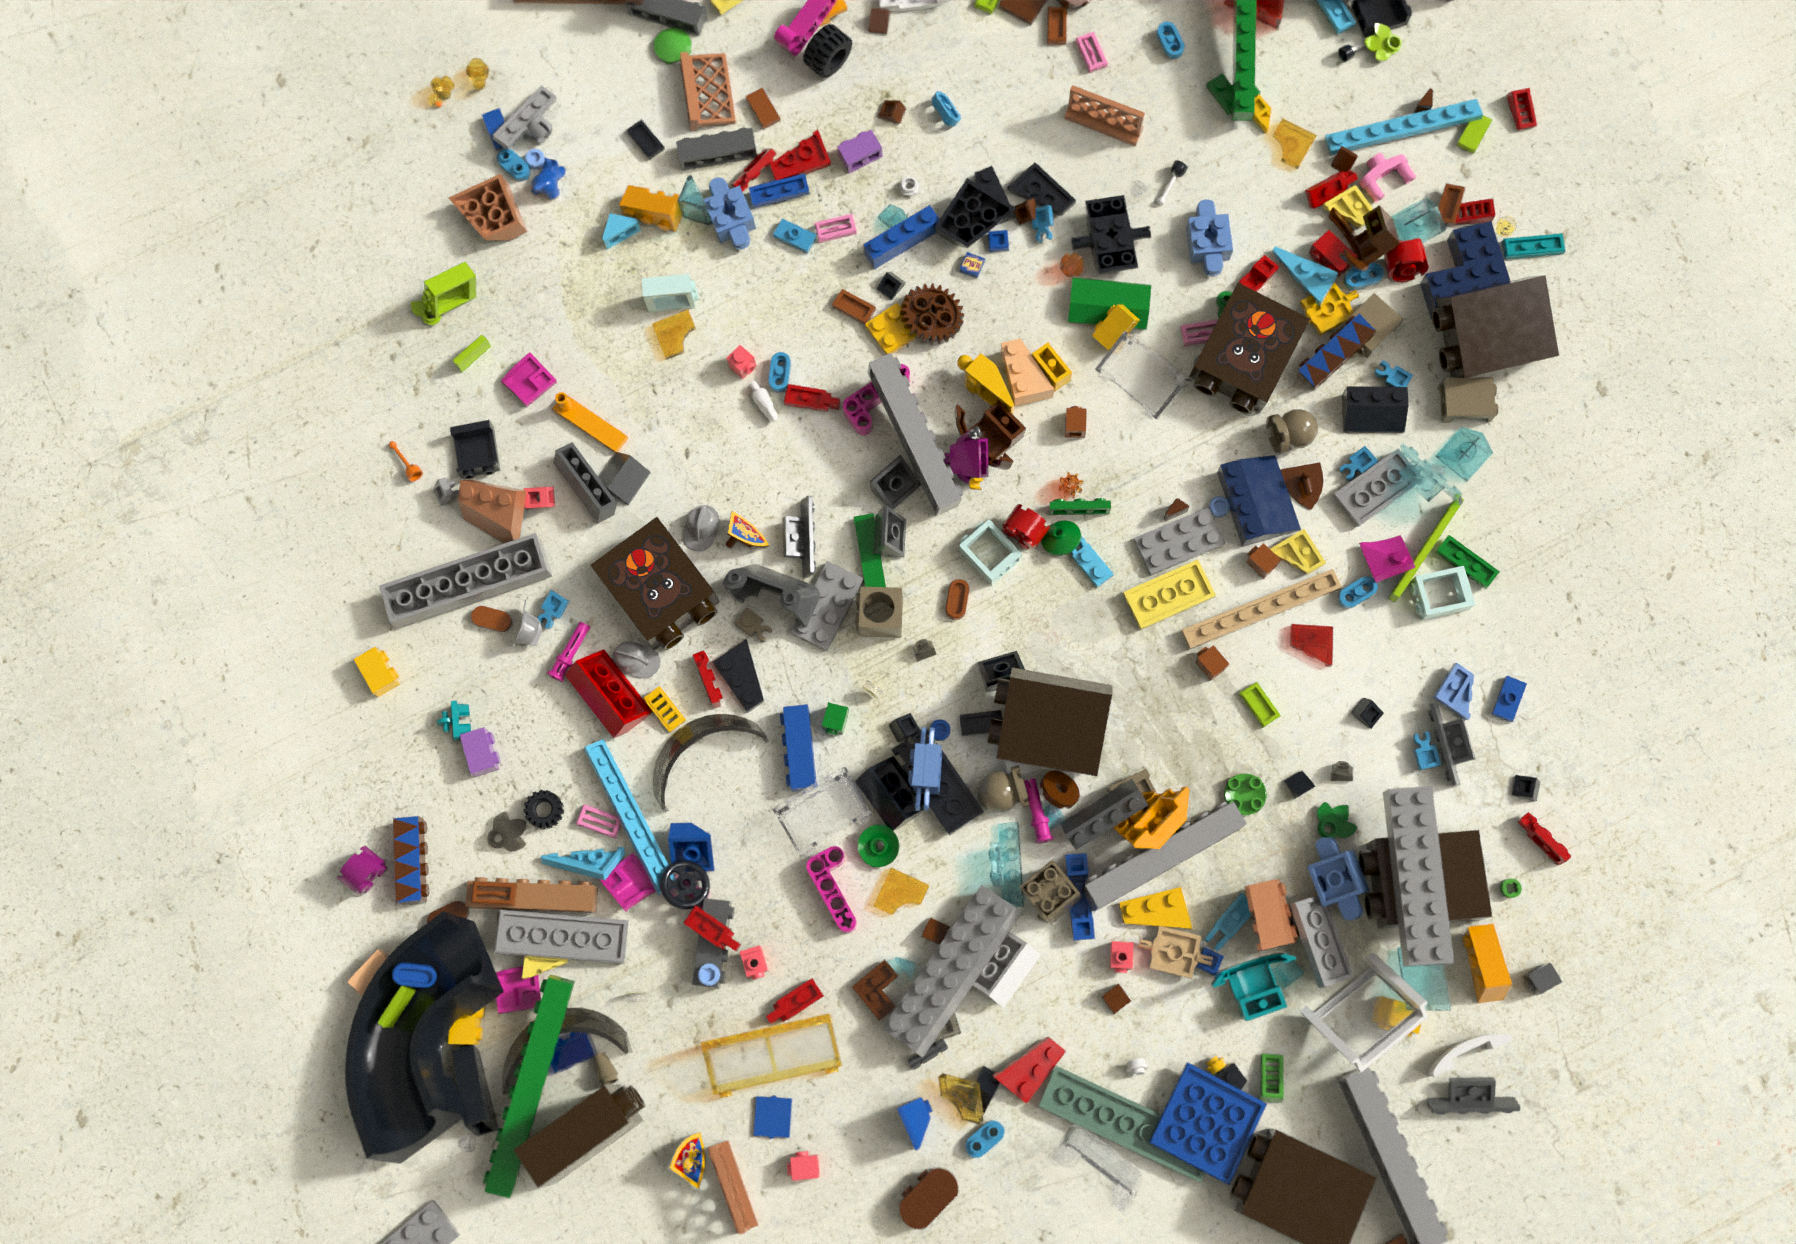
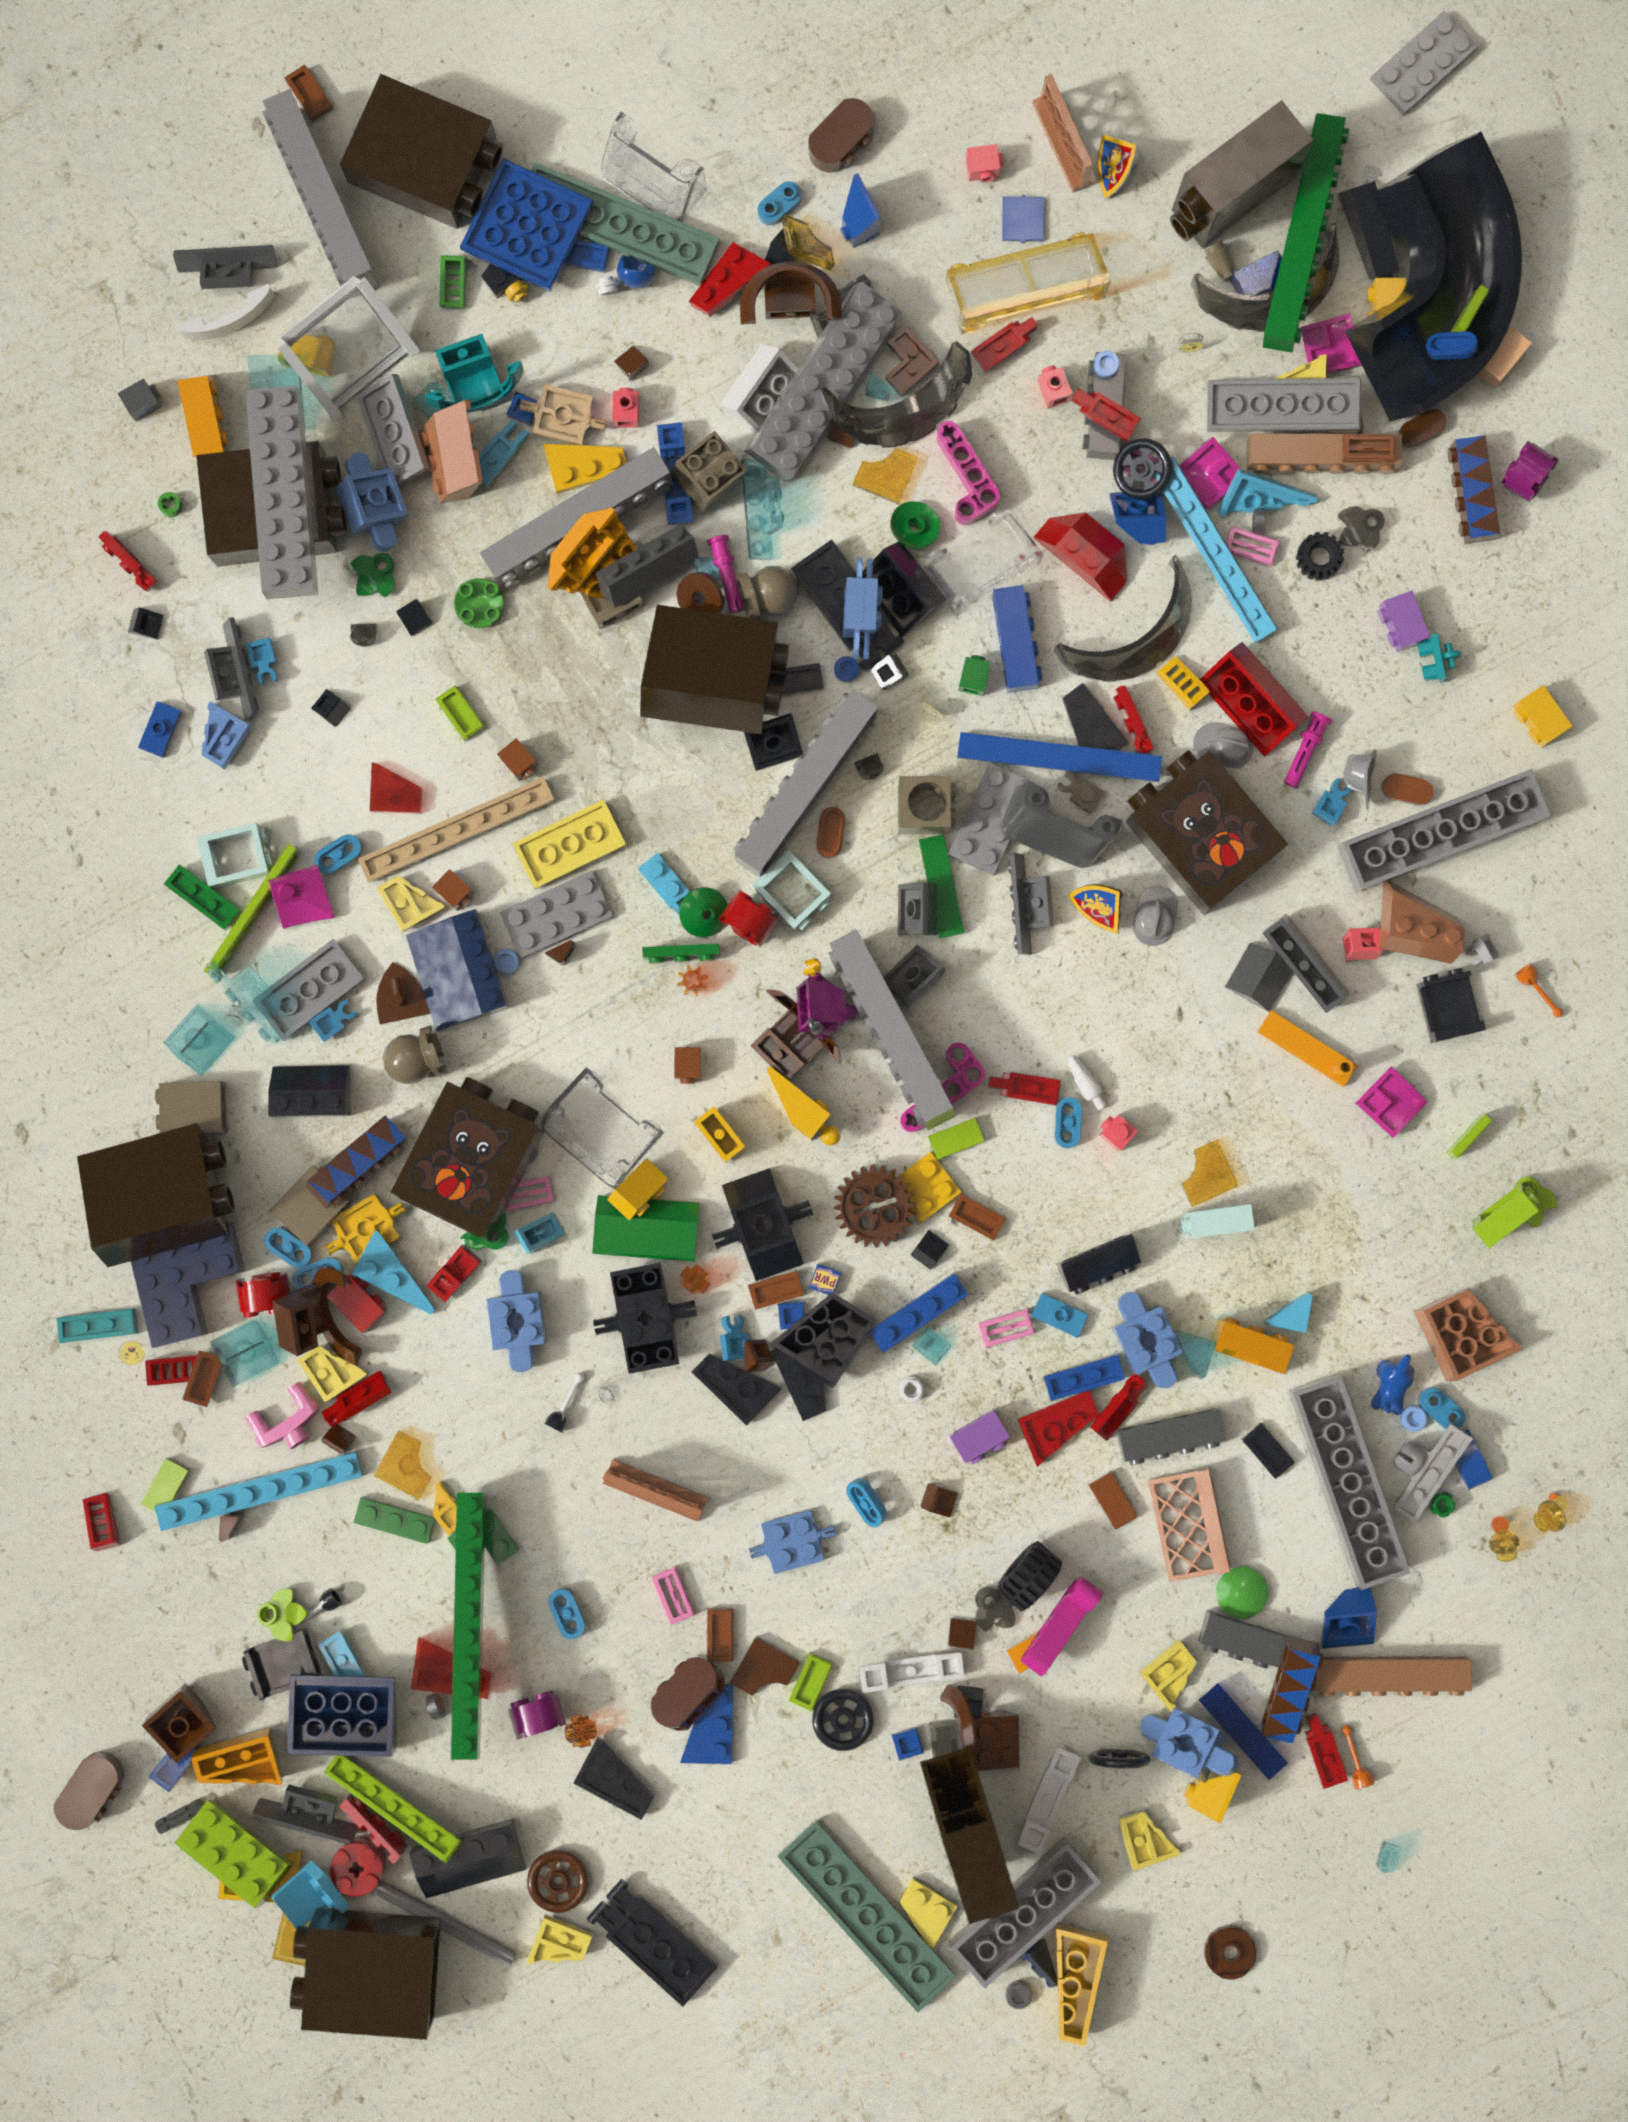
camera: 170 degrees right, 10 degrees up
(518, 95) = (1449, 1504): none -> green plate
(587, 113) = (1349, 1482): none -> light grey brick
(591, 840) = (1258, 520): none -> flat silver tile
(593, 24) = (1350, 1619): none -> blue slope
(737, 822) = (1087, 551): none -> red wedge
(763, 269) = (1099, 1264): none -> black slope
(769, 650) = (1059, 757): none -> blue tile
(858, 36) = (997, 1612): none -> clear smoke plate
(859, 365) = (956, 1138): none -> lime tile
(880, 940) = (913, 416): none -> clear smoke windscreen
(976, 631) = (806, 784): none -> light grey brick
(978, 1051) = (789, 292): none -> reddish brown piece
(1002, 84) = (792, 1542): none -> medium blue plate
(1010, 258) = (776, 1290): none -> dark orange tile
(1022, 319) = (769, 1250): none -> black slope
(1023, 374) = (755, 1125): light nougat wedge -> none
(1112, 1077) = (634, 273): none -> blue hair
(1152, 1096) = (588, 256): none -> blue tile
(1193, 300) = (539, 1233): none -> medium azure slope
(1300, 106) = (394, 1520): none -> green plate
(1388, 295) = (288, 1248): none -> dark azure plate
(1395, 377) = (281, 1136): dark azure plate -> none

